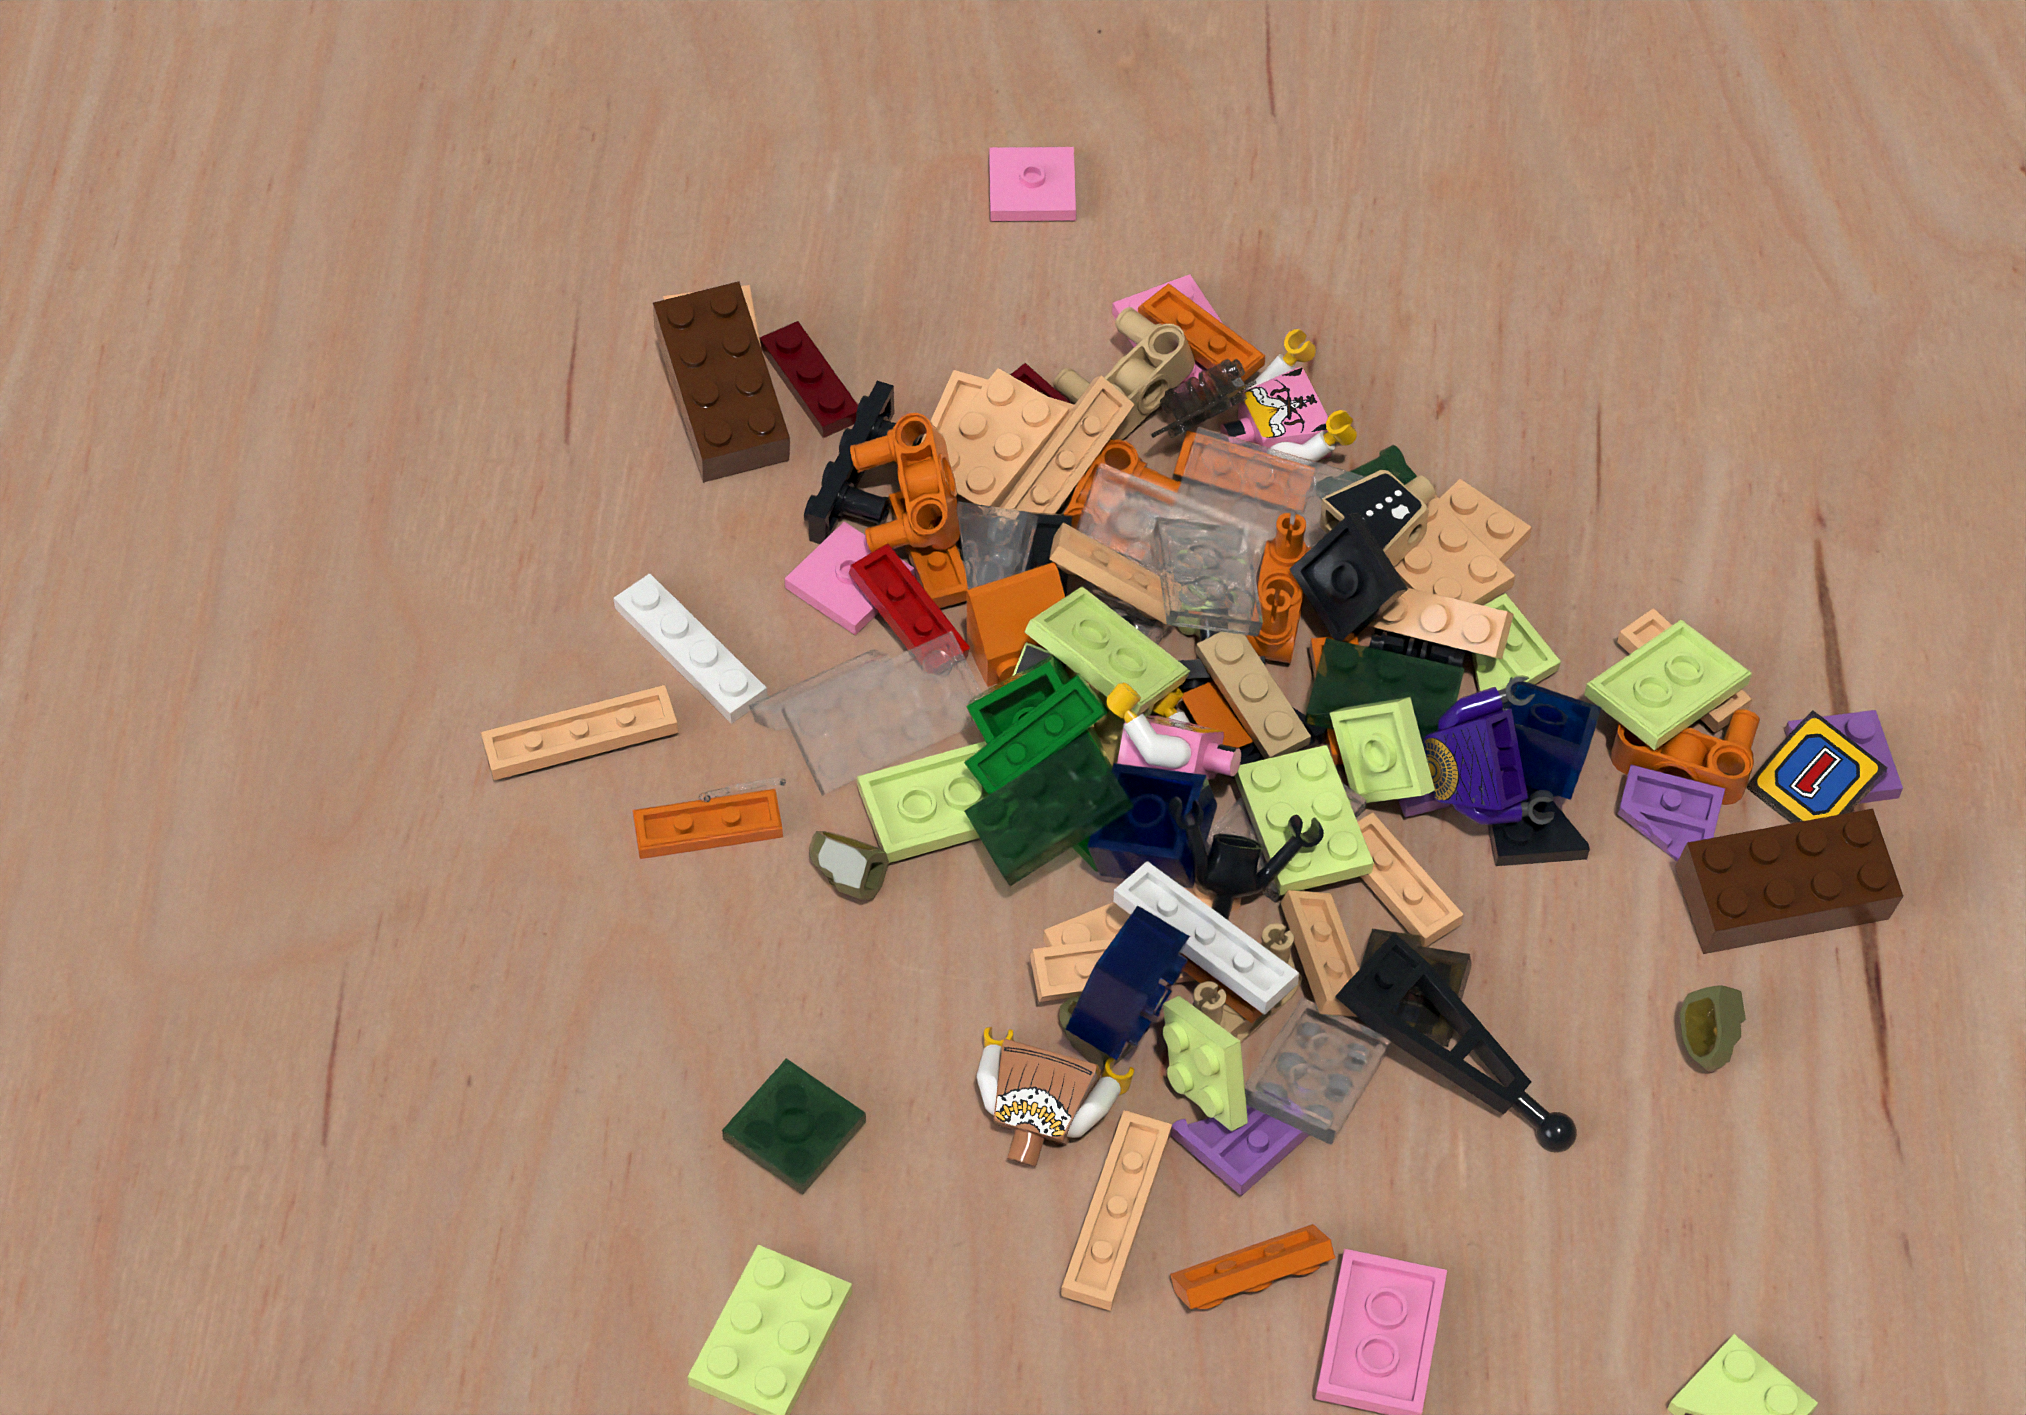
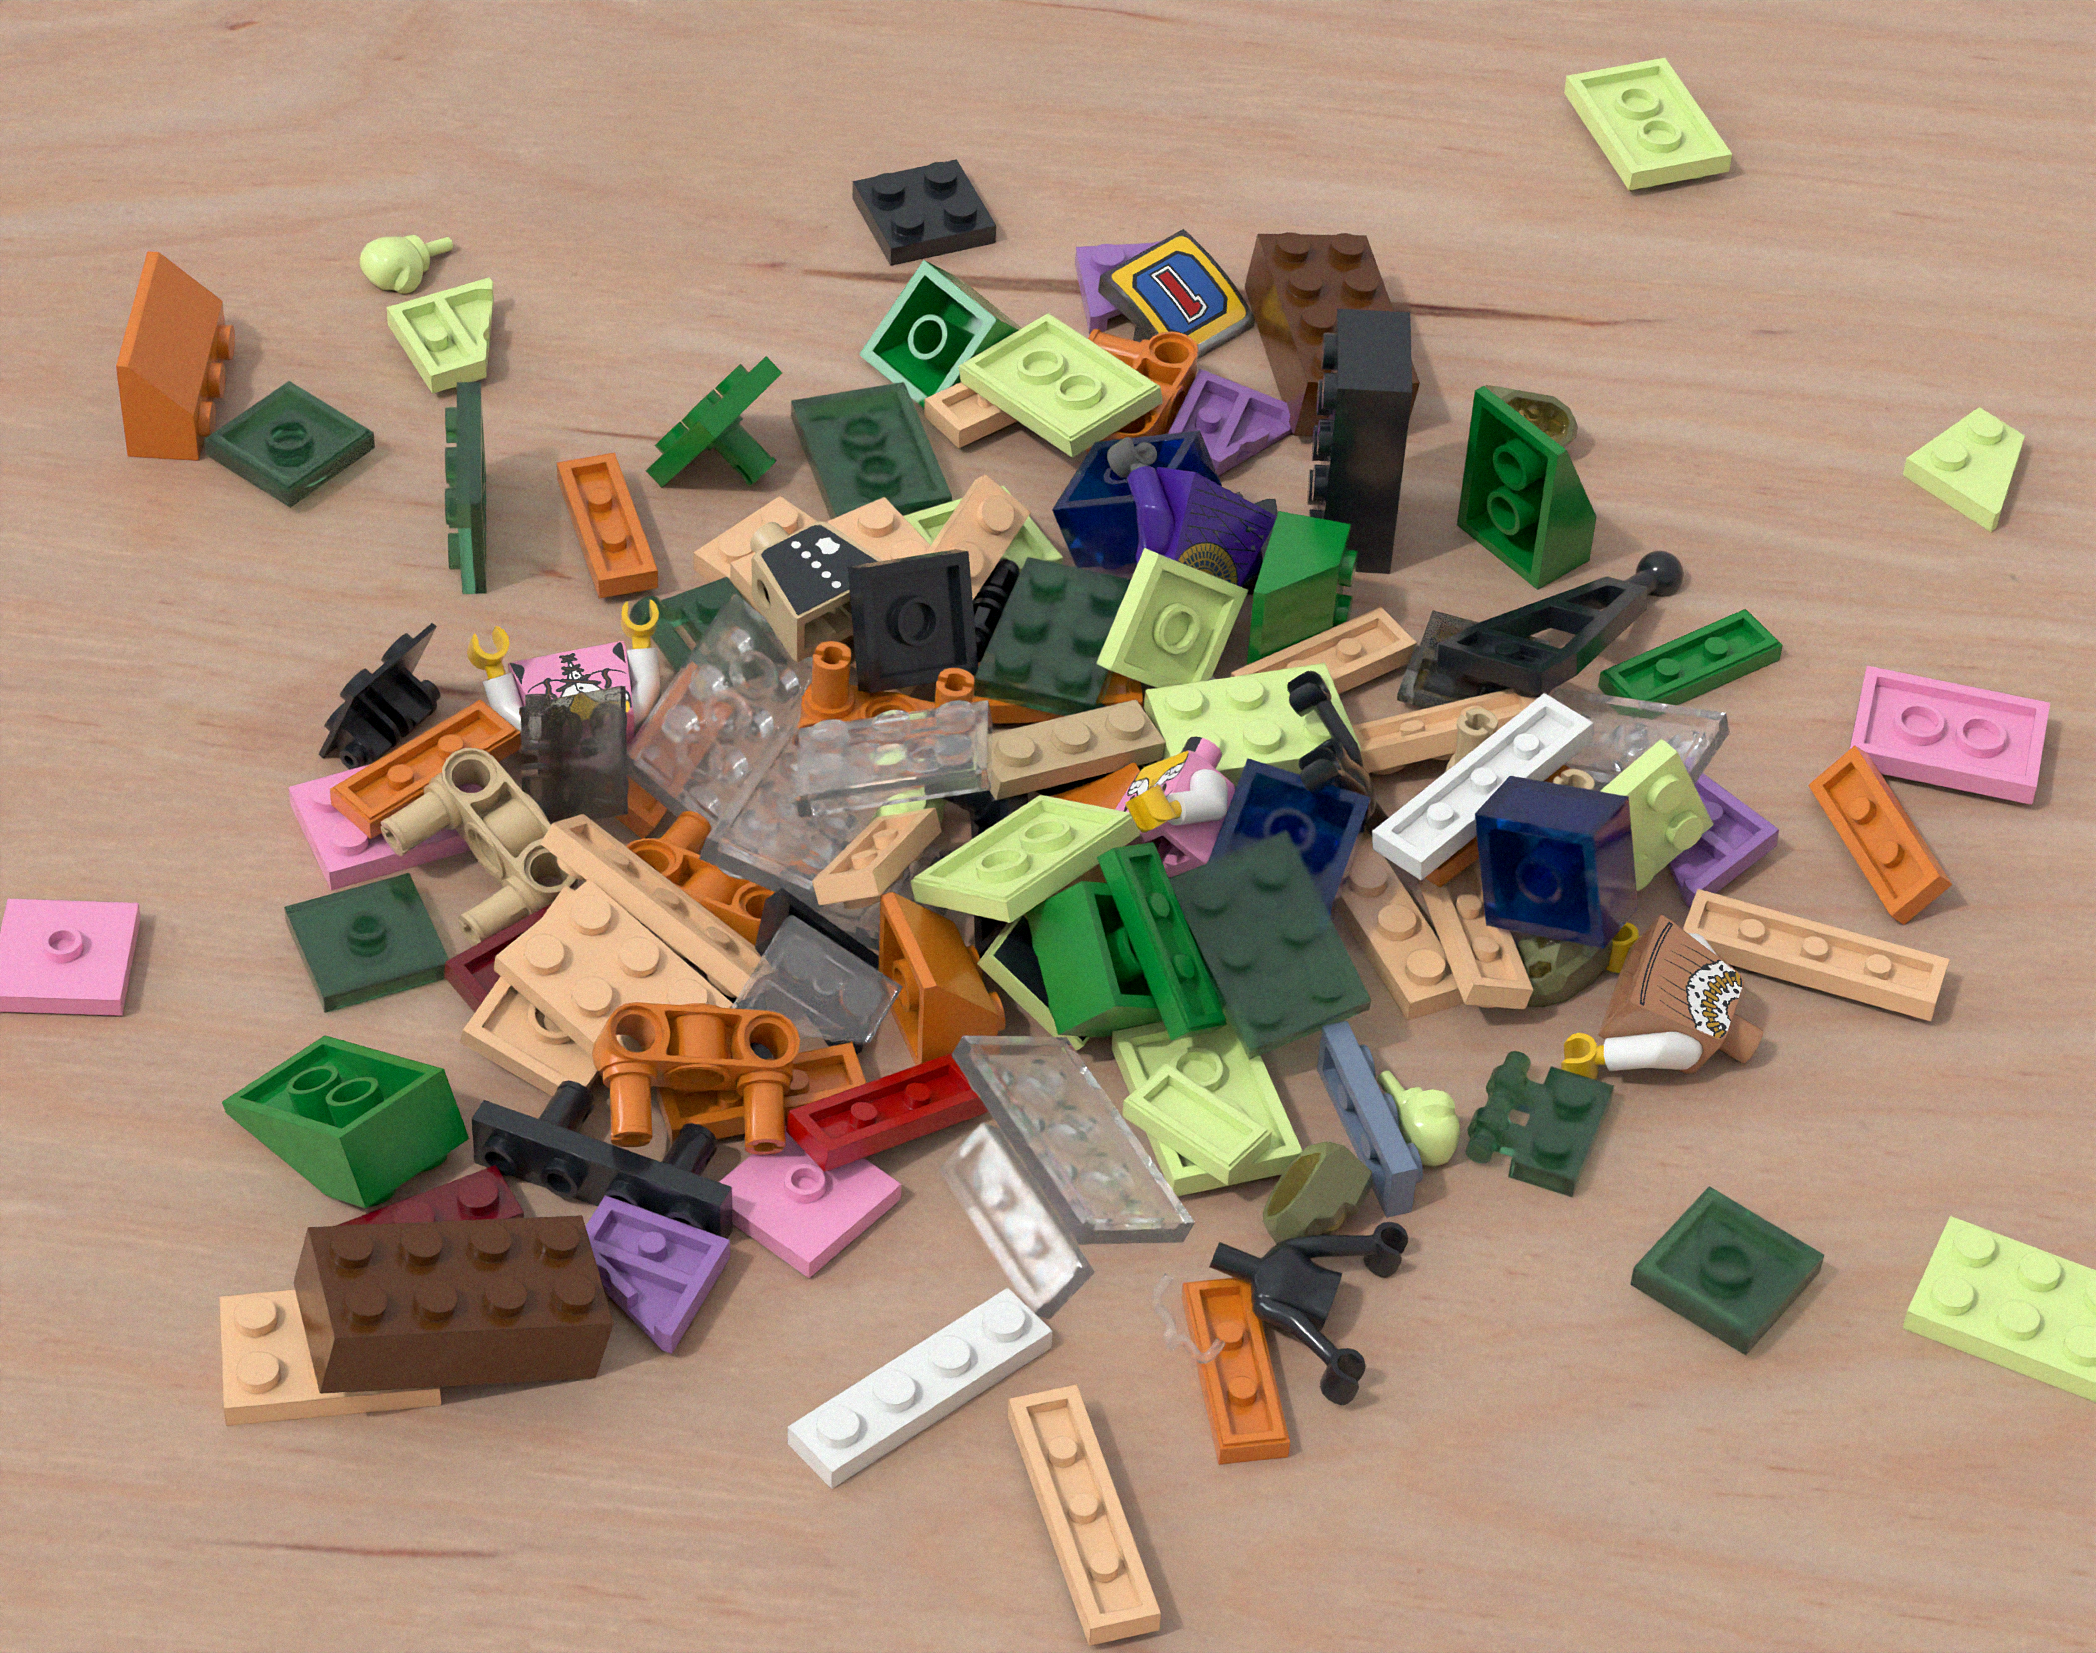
camera: 90 degrees left, 10 degrees down
(762, 855) = (1299, 1293): none -> black piece
(776, 496) = (655, 1267): none -> medium lavender wing
(892, 329) = (352, 1118): none -> green slope
(901, 784) = (1197, 1124): none -> yellowish green tile
(922, 932) = (1425, 1119): none -> yellowish green piece
(924, 897) = (1369, 1118): none -> sand blue plate
(931, 1028) = (1560, 1129): none -> clear green plate
(1058, 331) = (366, 942): none -> clear green plate
(1255, 300) = (382, 704): none -> black hinge
(1447, 839) = (1301, 583): none -> green slope
(1448, 1149) = (1694, 662): none -> green tile
(1481, 331) = (467, 488): none -> clear green plate
(1481, 426) = (607, 525): none -> orange plate
(1535, 241) = (289, 443): none -> clear green plate
(1580, 475) = (717, 425): none -> green plate
(1587, 581) = (868, 449): none -> clear green plate
(1590, 155) = (172, 363): none -> orange slope
(1592, 861) = (1363, 430): none -> black brick
(1592, 1004) = (1523, 495): none -> green slope
(1674, 319) = (447, 333): none -> yellowish green wing
(1740, 615) = (933, 331): none -> green slope
(1756, 282) = (400, 261): none -> yellowish green piece
(1903, 610) = (923, 212): none -> black plate

